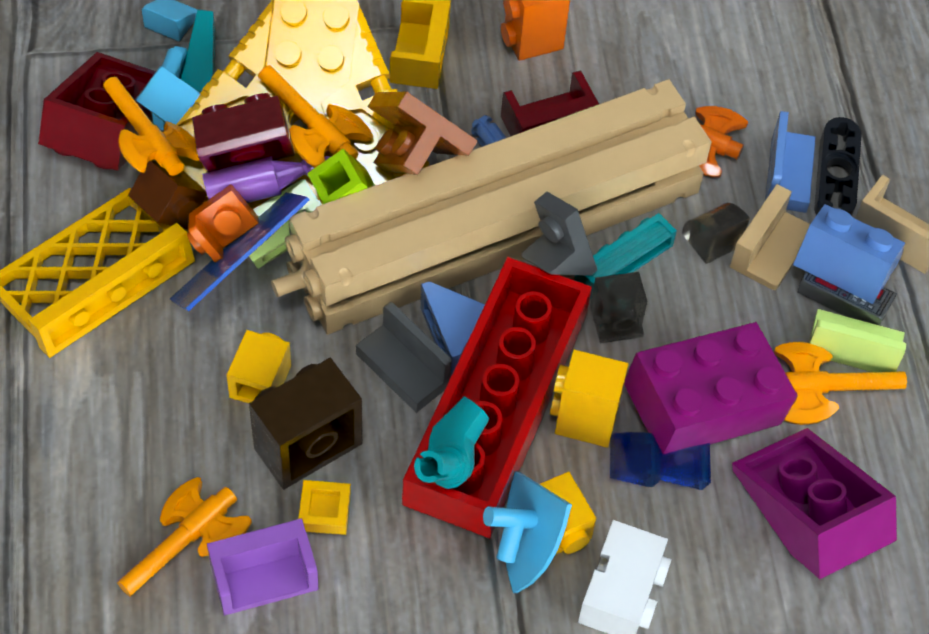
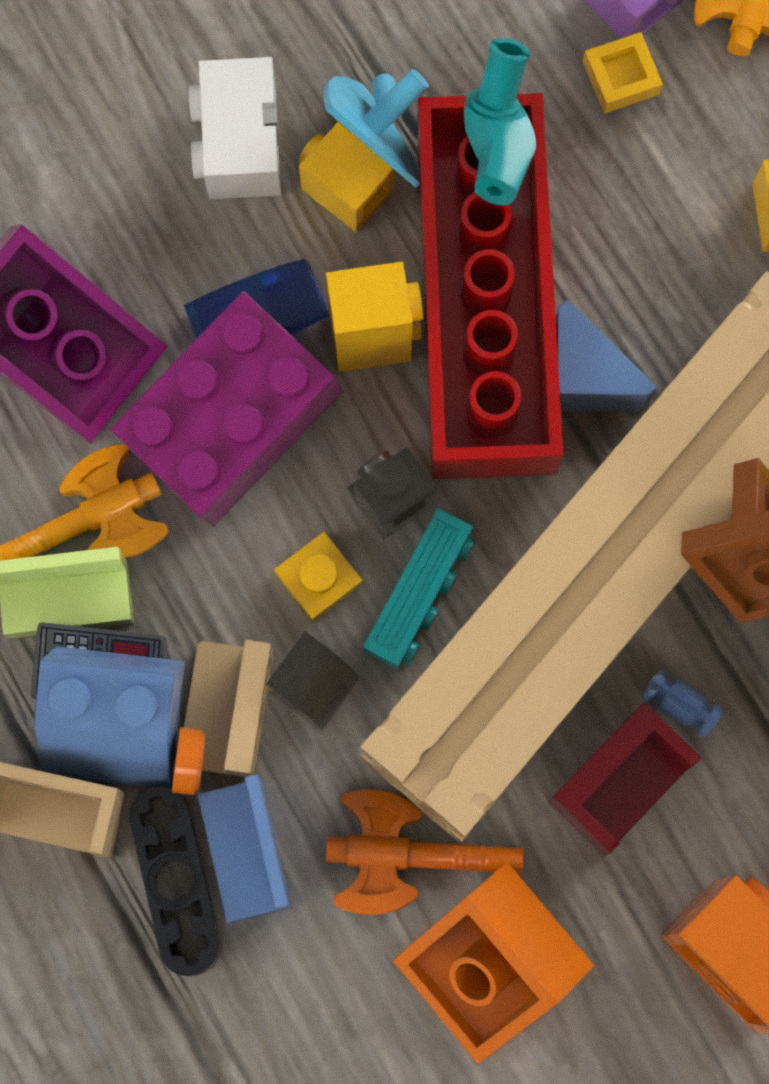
camera: 160 degrees right, 20 degrees up
(306, 422) = (698, 132): dark brown brick -> none
(406, 359) = (629, 302): dark grey panel -> none
(564, 243) = (503, 502): dark grey slope -> none
(663, 49) = (494, 964): none -> orange slope
(685, 290) = (318, 577): none -> yellow plate
(808, 210) = (188, 761): none -> orange tile

